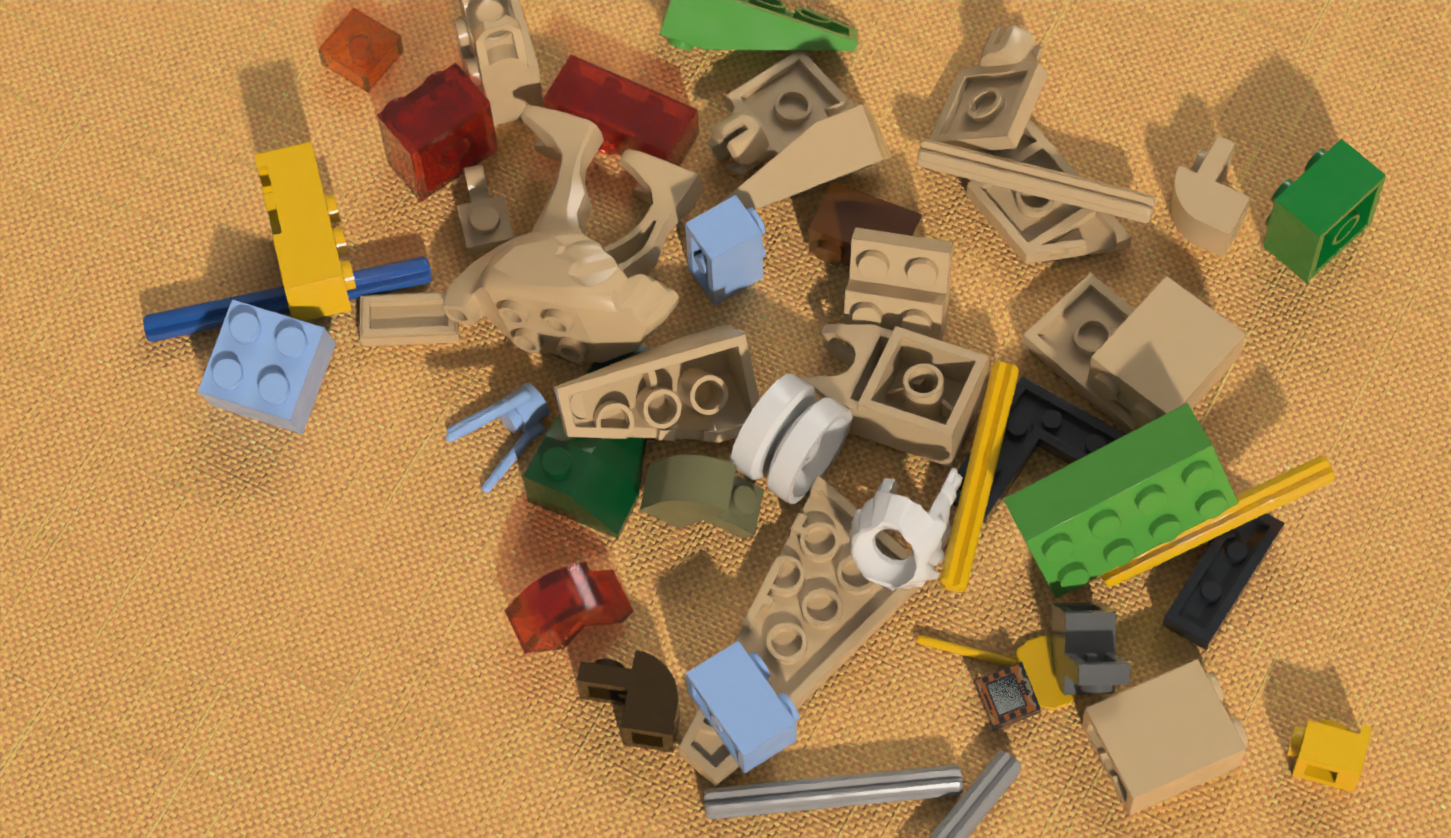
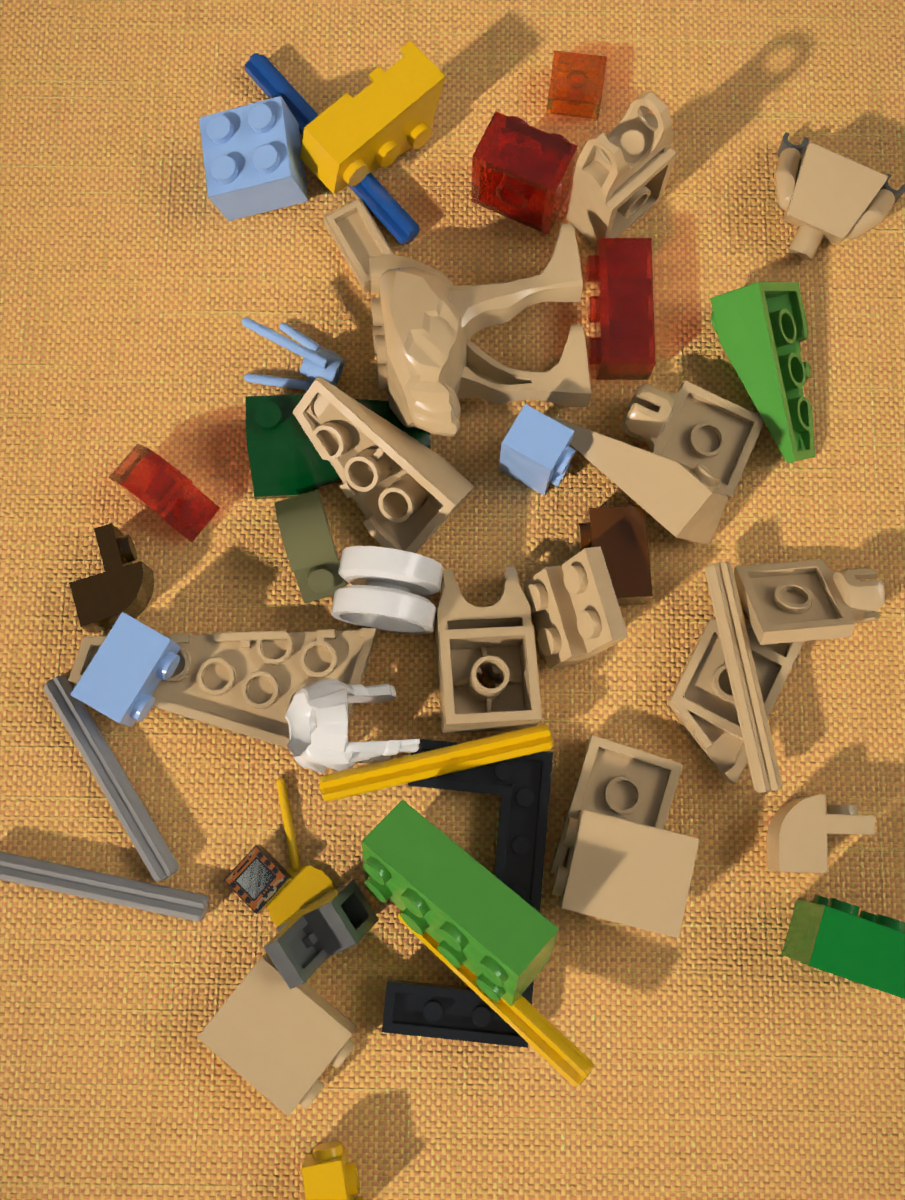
camera: 60 degrees right, 15 degrees up
(484, 219) = (478, 256): tan plate -> none

